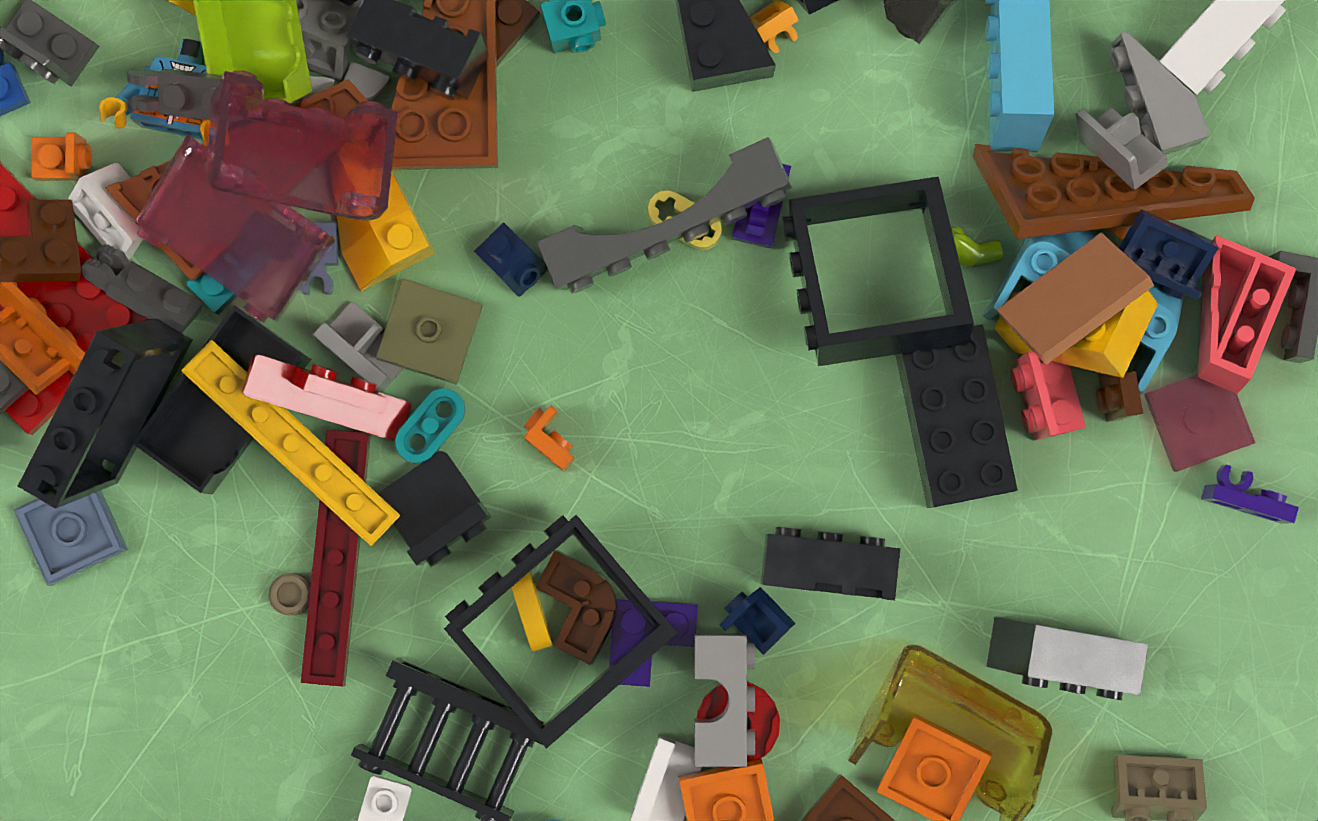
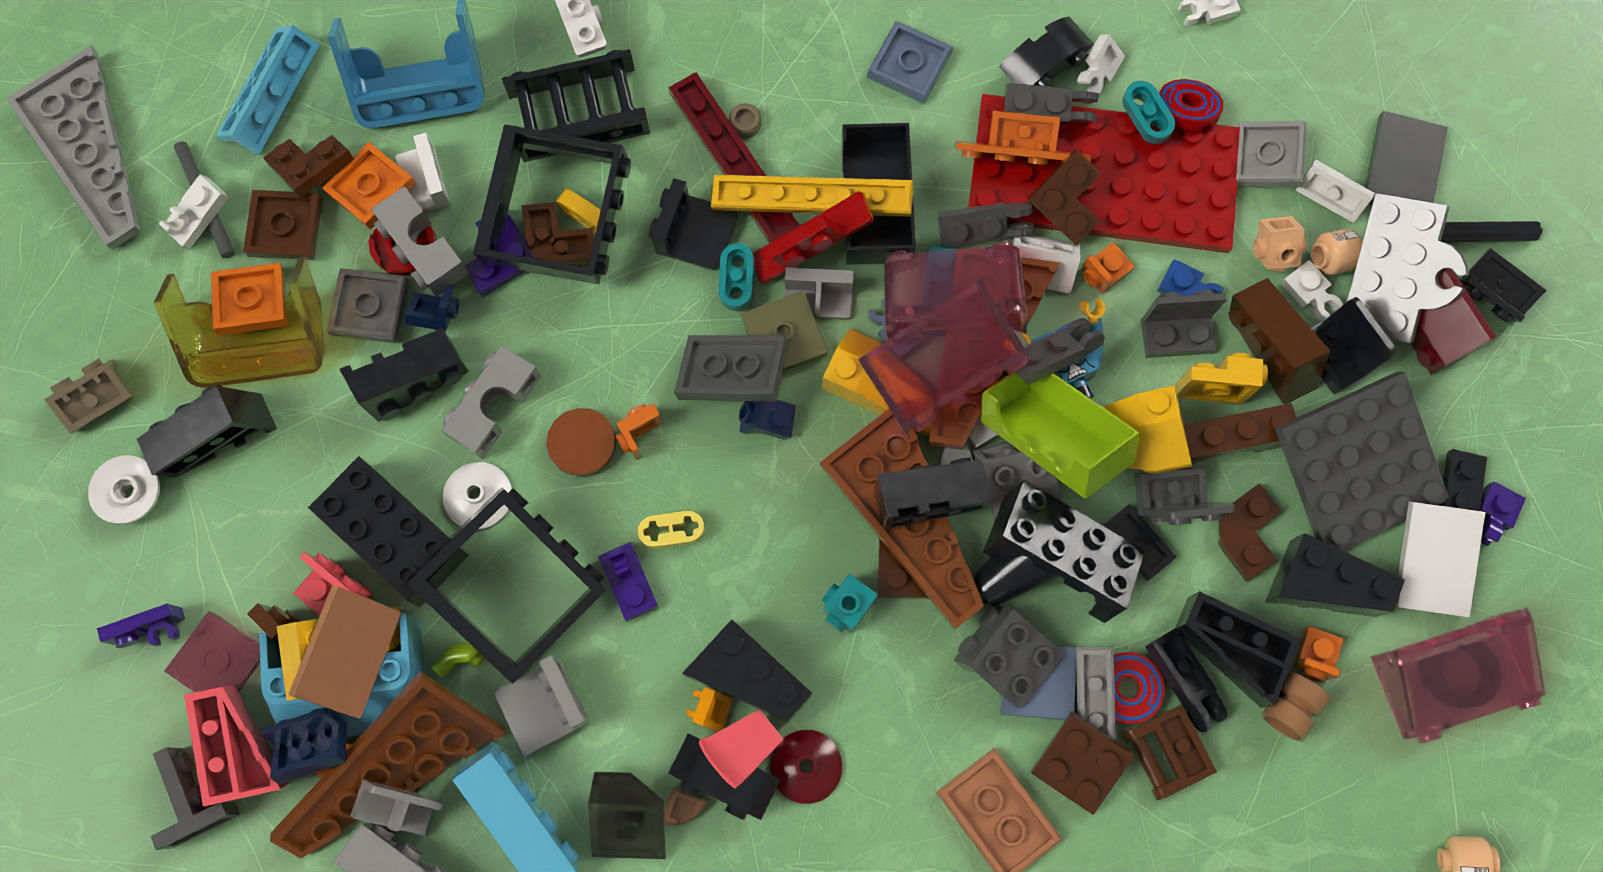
camera: 140 degrees right, 10 degrees down
(104, 411) = (936, 94): black window -> none
(508, 327) = (731, 368): none -> dark grey plate
(552, 446) = (648, 318): orange bracket -> none
(635, 347) = (639, 421): none -> orange bracket
(707, 372) = (581, 442): none -> dark orange tile
(751, 179) = (721, 451): dark grey arch -> none
(803, 468) = (502, 376): none -> light grey arch
(819, 676) = (367, 305): none -> flat silver plate
(842, 419) = (460, 483): none -> white dish
(925, 141) = (541, 706): none -> light grey bracket
(1204, 660) = (109, 488): none -> white dish

